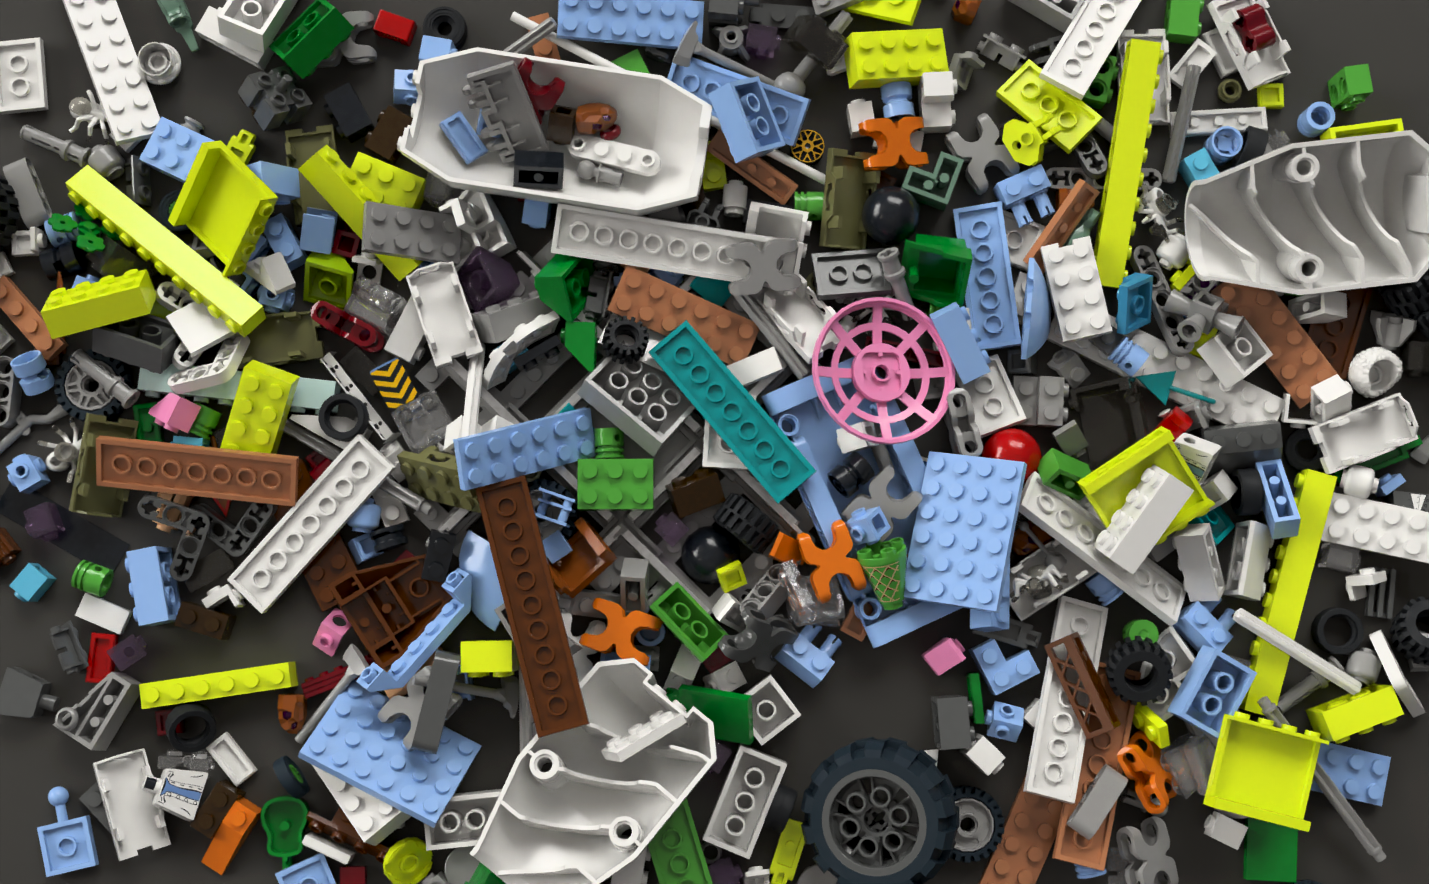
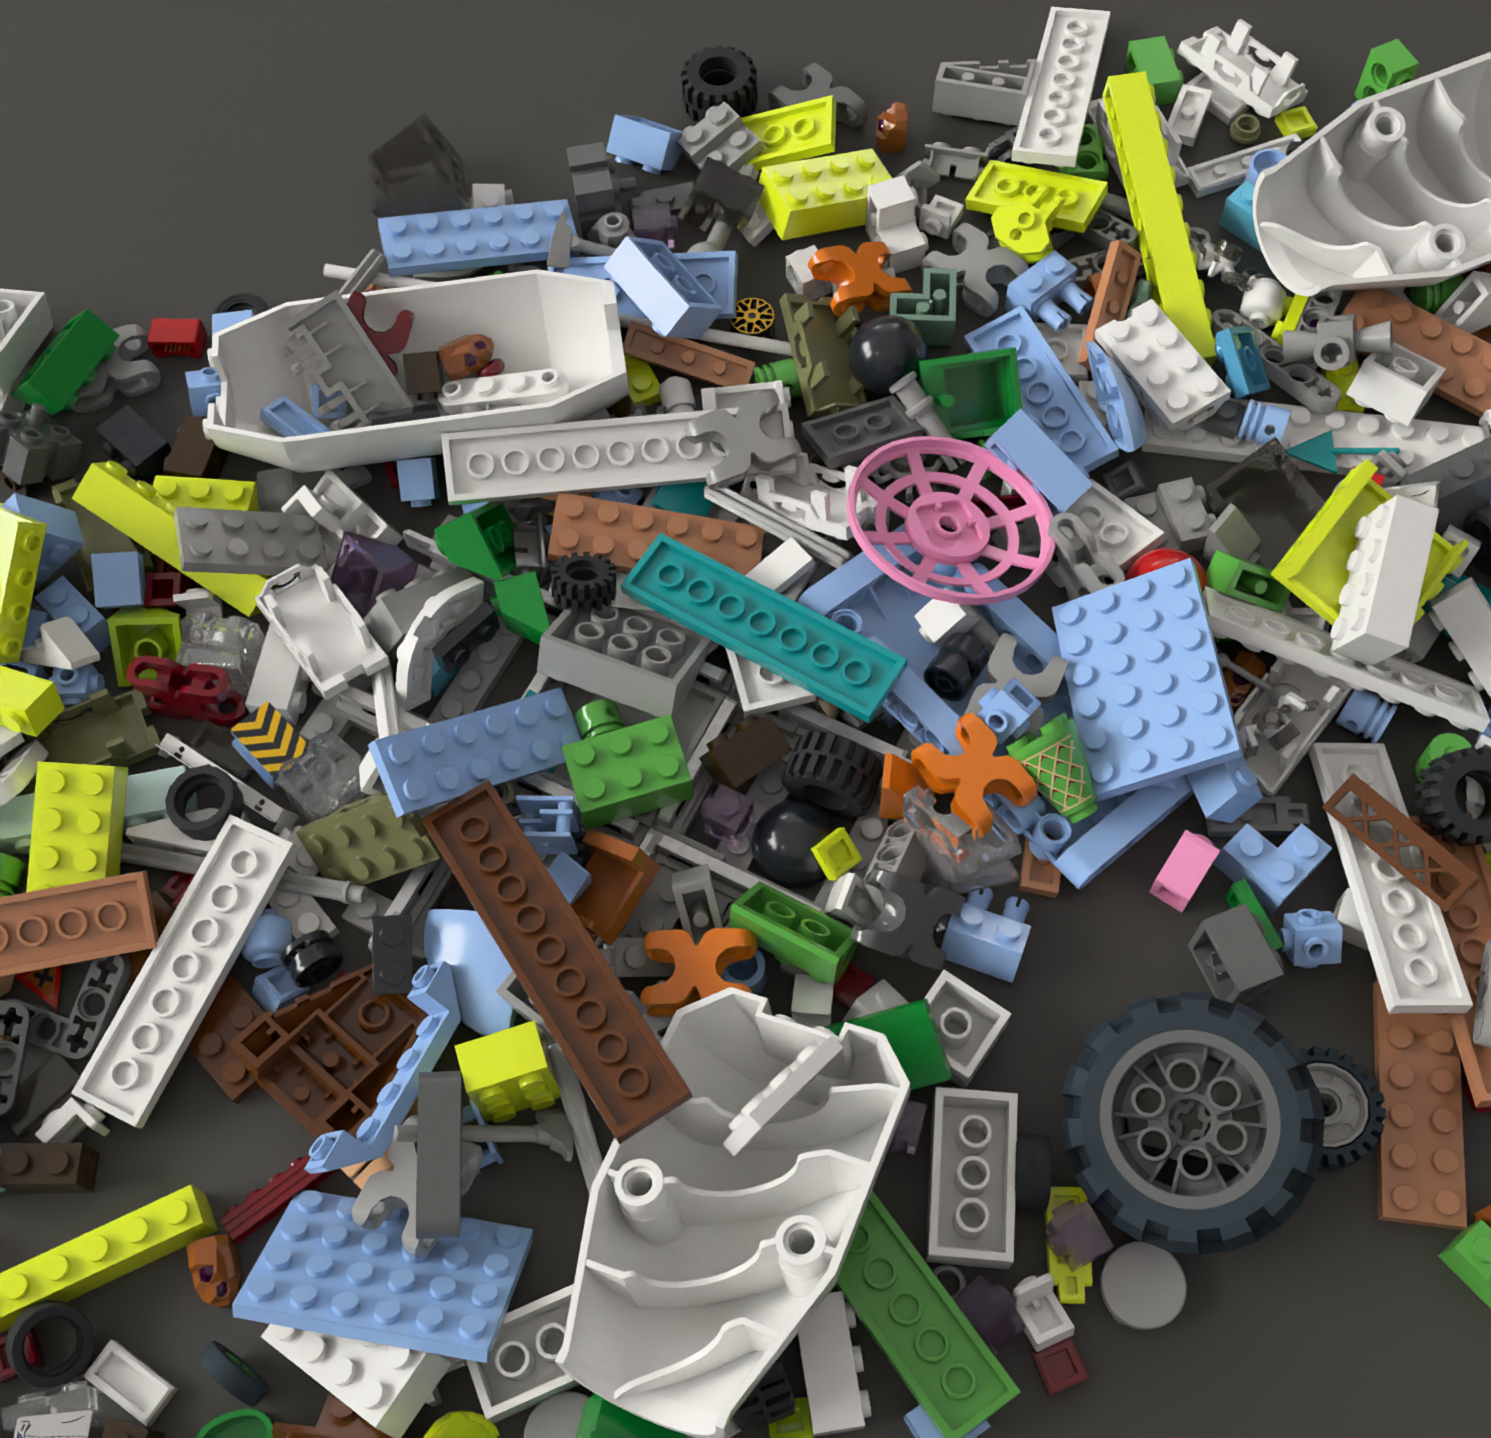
camera: 15 degrees left, 20 degrees down
(329, 634) = (252, 1129): bright pink bracket -> none
(357, 664) = (296, 1151): light grey piece -> none
(791, 854) = (1077, 1234): none -> brick
(897, 97) = (843, 230): light blue wheel -> none
(973, 98) = (940, 216): none -> white bracket
(984, 755) = (1303, 991): white brick -> none
(1069, 366) = (1191, 463): light grey bracket -> none
(1181, 124) = (1205, 172): light grey axle -> none
(1254, 28) = (1245, 52): dark red axle -> none

